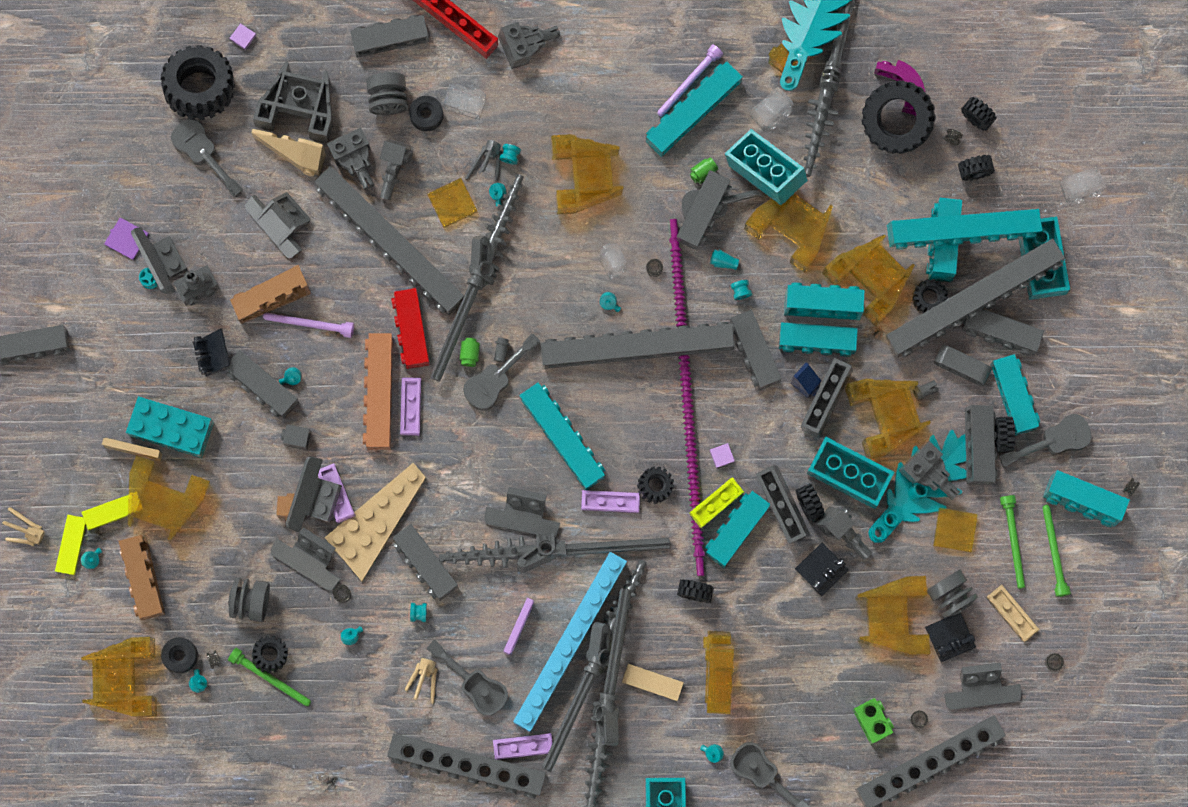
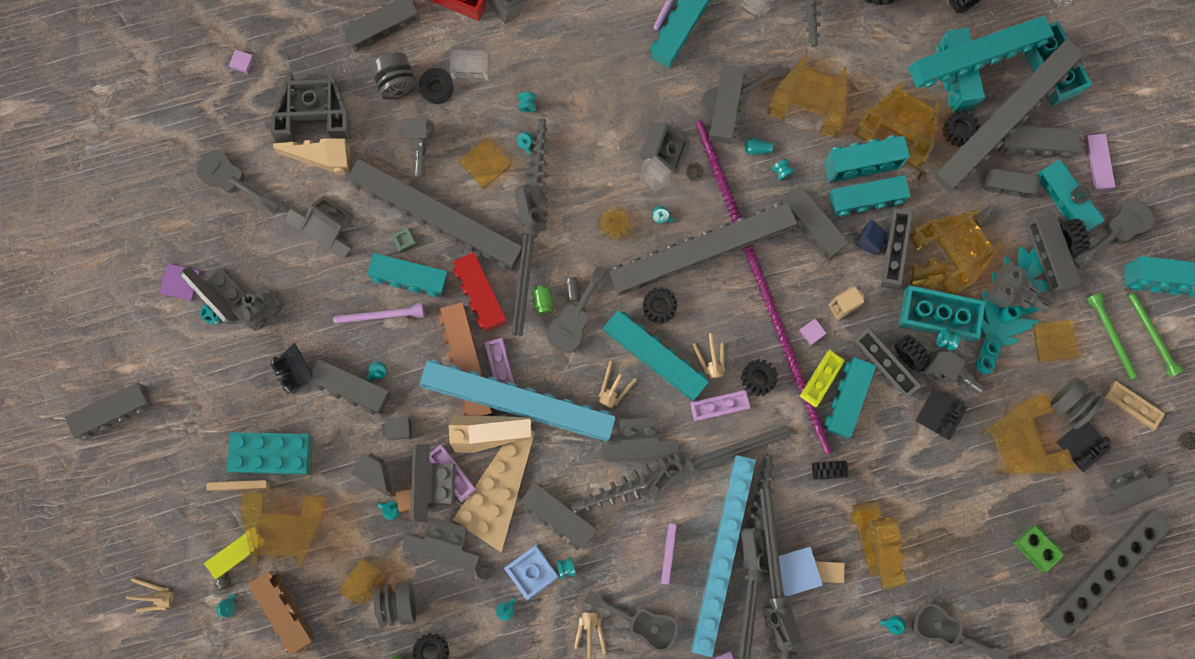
camera: 15 degrees left, 0 degrees up
(70, 545) = (203, 599): neon yellow tile -> none
(197, 61) = (199, 95): black tyre -> none
(223, 570) = (361, 581): none -> clear yellow brick
(263, 473) = (374, 473): none -> dark grey slope
(267, 511) = (389, 510): none -> teal piece
(270, 295) = (334, 297): medium nougat wedge -> none
(347, 292) = (408, 275): none -> teal brick
(352, 152) = (375, 141): dark grey brick -> none
(352, 256) = (403, 239): none -> sand green tile
(377, 463) = (480, 433): none -> tan wedge
(385, 608) = (531, 572): none -> light blue tile
(417, 442) = (517, 401): none -> medium azure brick
(490, 151) = (508, 104): dark grey plant -> none
(505, 462) = (609, 397): none -> tan plant
(563, 303) = (622, 223): none -> clear yellow gear
(581, 400) = (659, 316): none -> black tyre
(590, 172) = (608, 98): clear yellow wedge -> none
(615, 465) = (714, 369): none -> tan plant
(632, 235) = (666, 145): none -> dark grey slope
(636, 677) = (799, 571): none -> light blue tile
(701, 170) = (712, 69): bright green brick -> none
(761, 436) = (846, 302): none -> tan brick
(766, 167) = (773, 47): teal brick -> none
(845, 498) = (948, 339): none -> teal wheel
(851, 432) = (928, 276): none -> clear yellow hips
(1017, 398) = (1083, 190): none -> clear smoke bush
(1058, 368) = (1100, 162): none -> lavender tile

